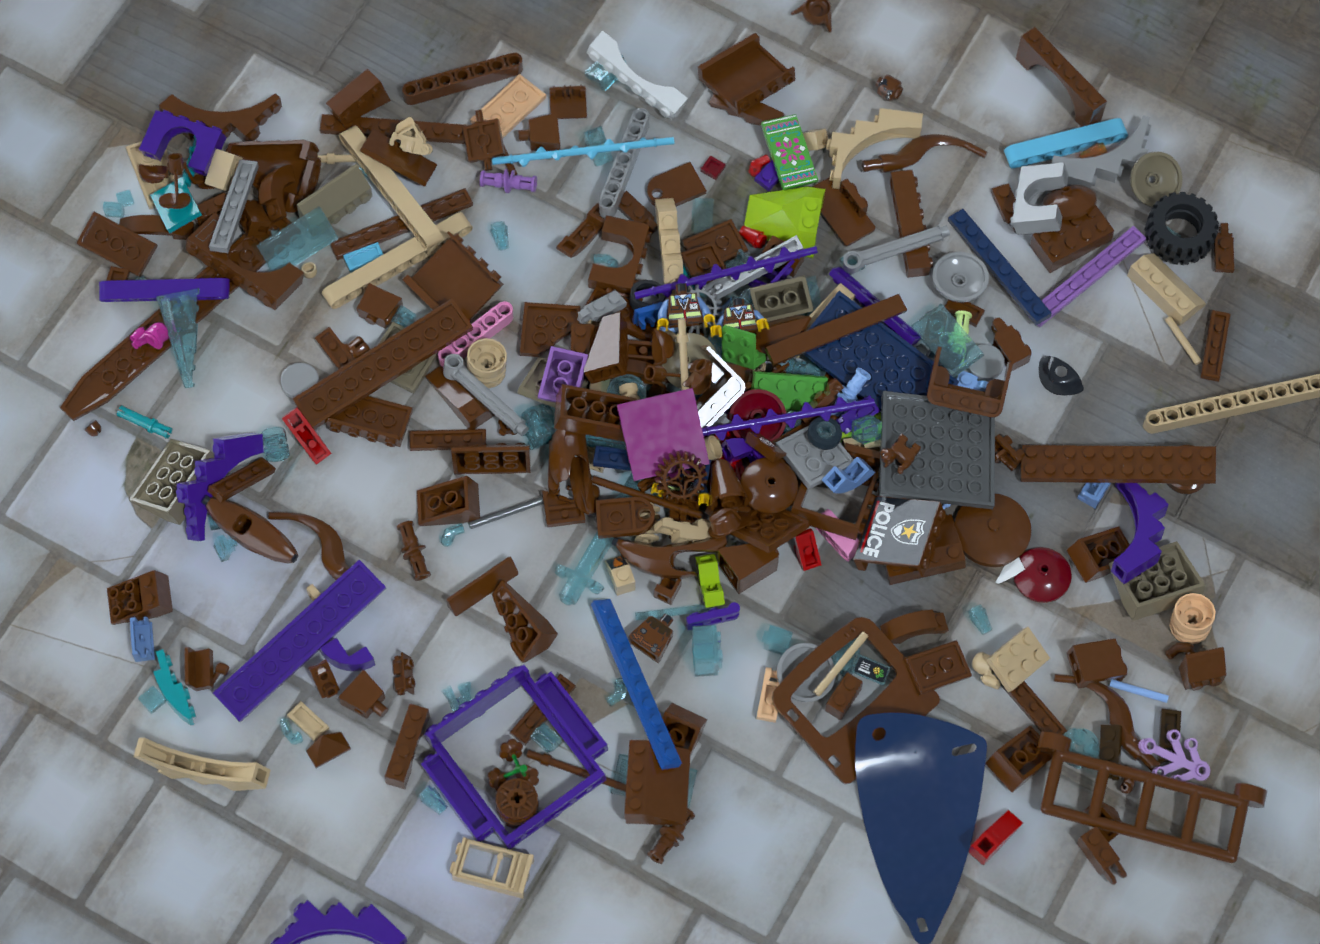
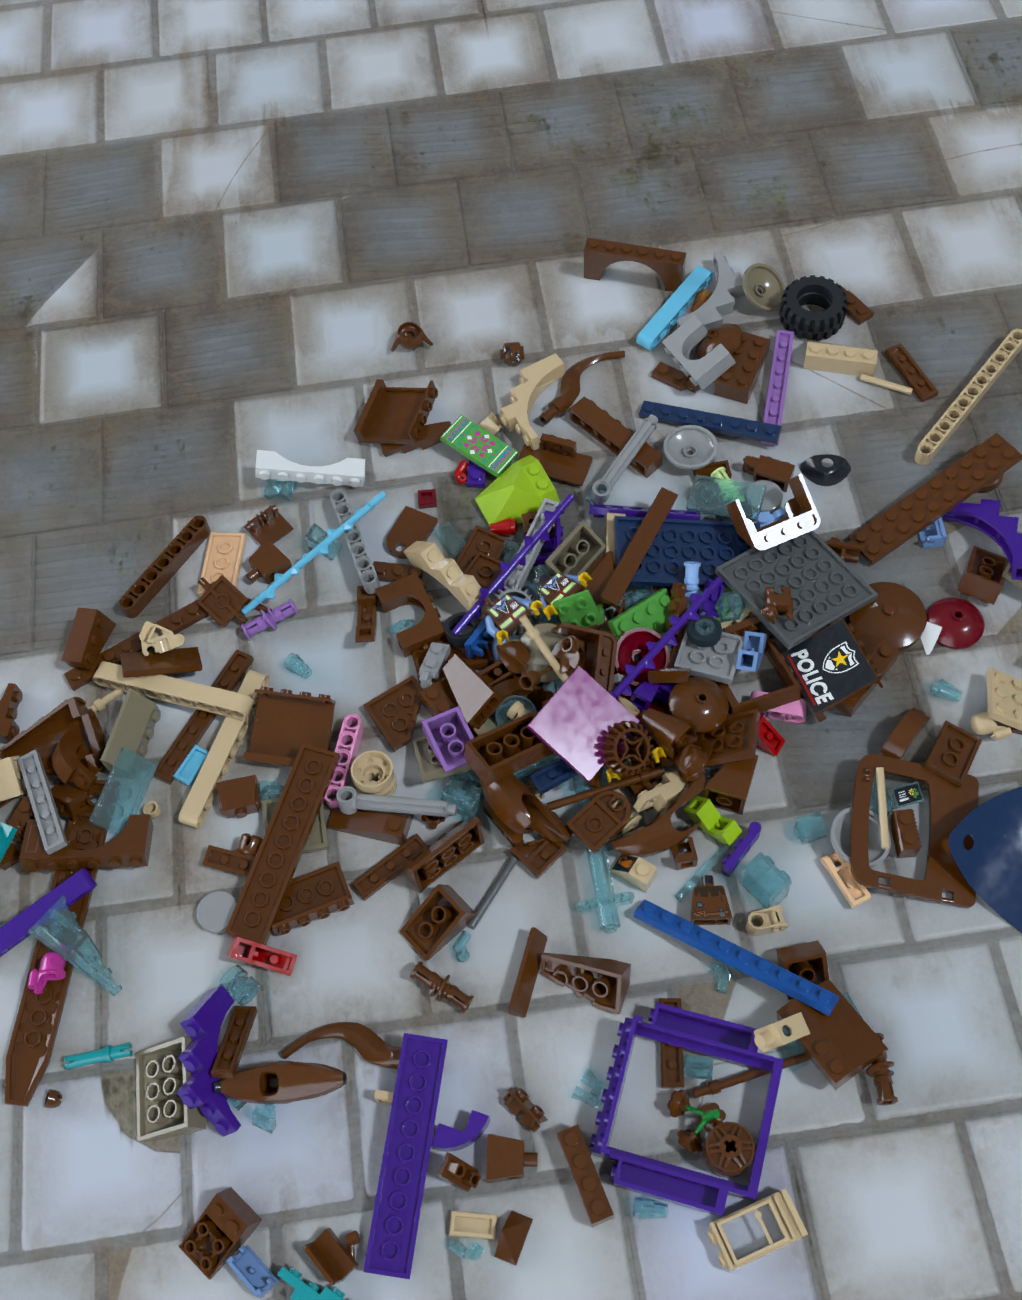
camera: 30 degrees left, 5 degrees down
(610, 750) = (772, 1036): none -> tan torso
(685, 680) = (770, 920): none -> tan piece

